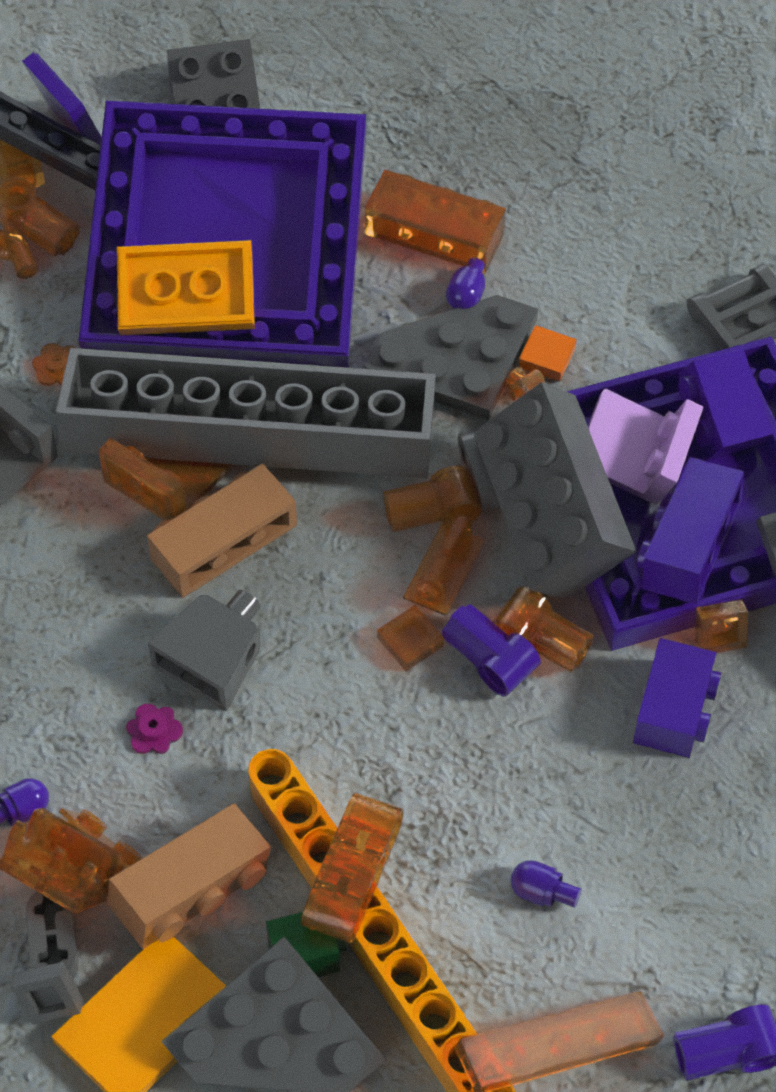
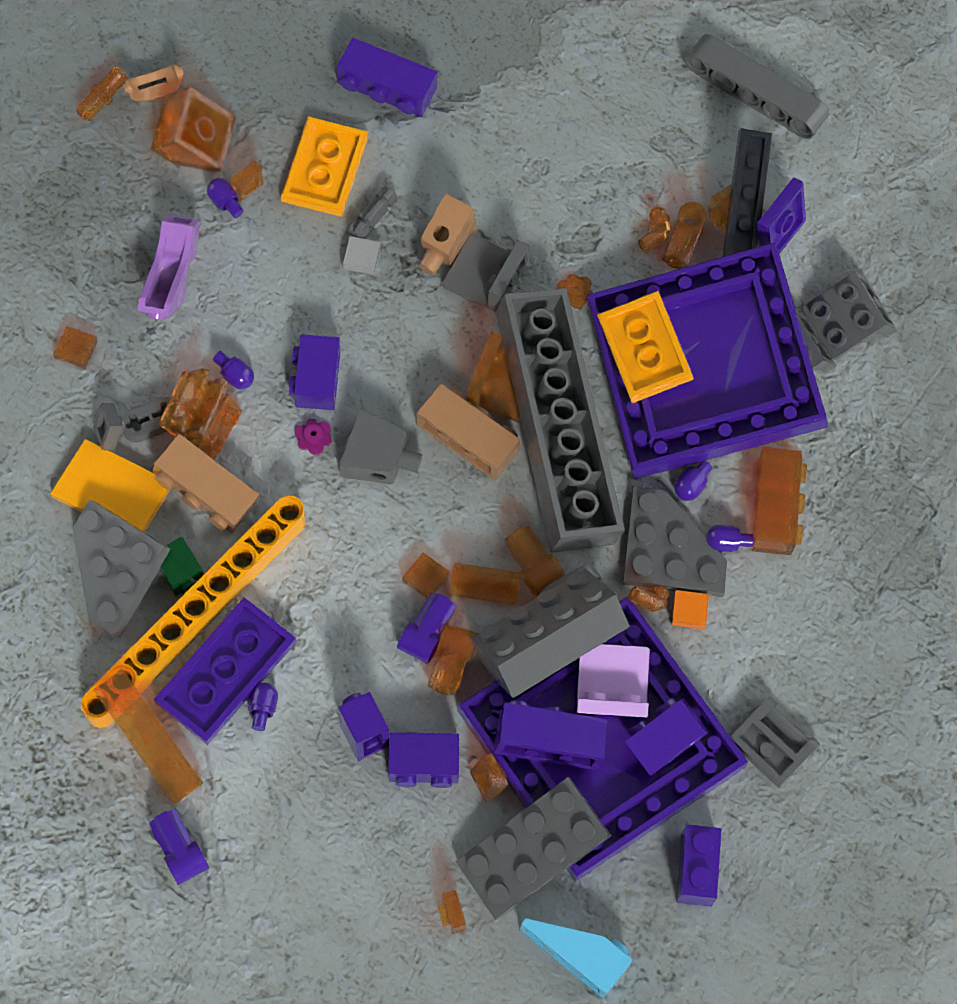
camera: 70 degrees right, 10 degrees up
(64, 693) = (317, 372): none -> dark purple brick
(352, 867) = (225, 575): clear orange beam -> none
(378, 302) = (692, 481): none -> dark purple cylinder
(481, 922) = (225, 670): none -> dark purple plate
(619, 750) = (363, 725): none -> dark purple brick

